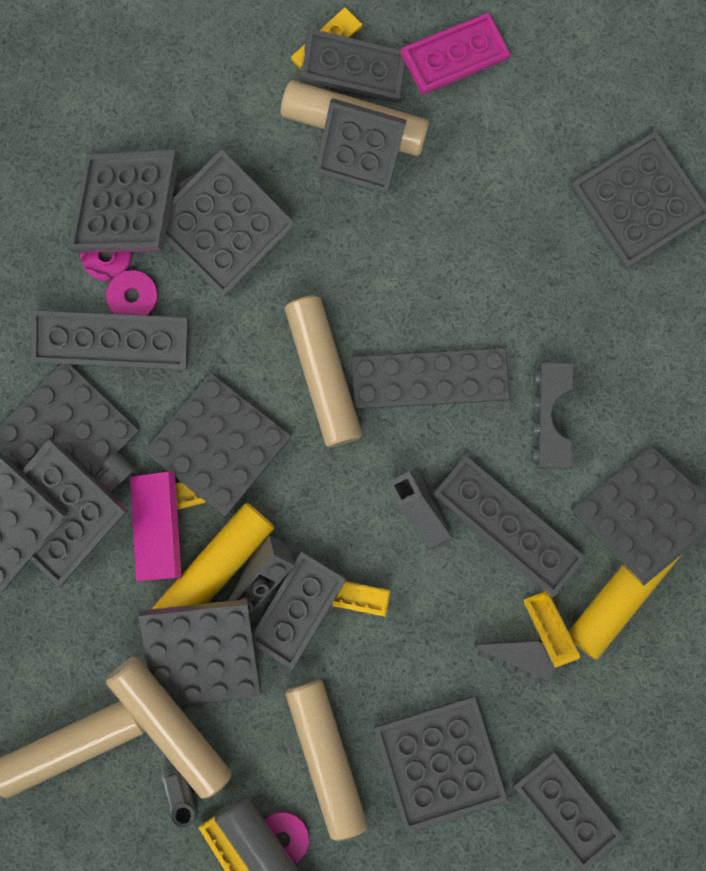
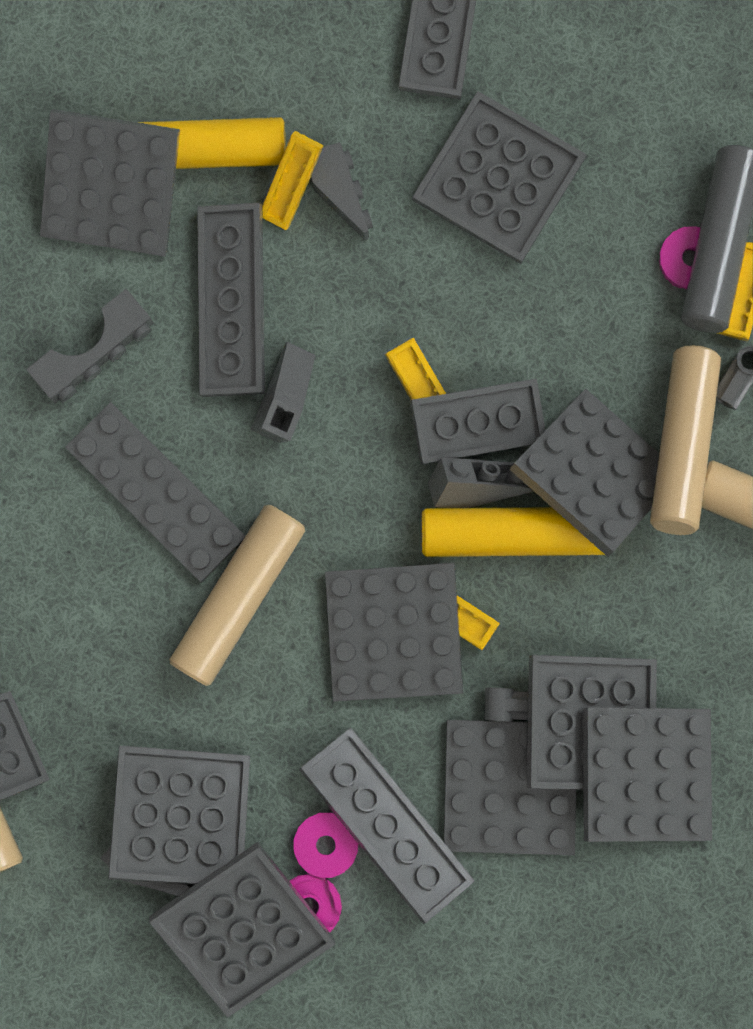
camera: 125 degrees left, 0 degrees up
(155, 526) = (521, 619): dark pink tile -> none
(326, 760) = (586, 279): tan cylinder -> none

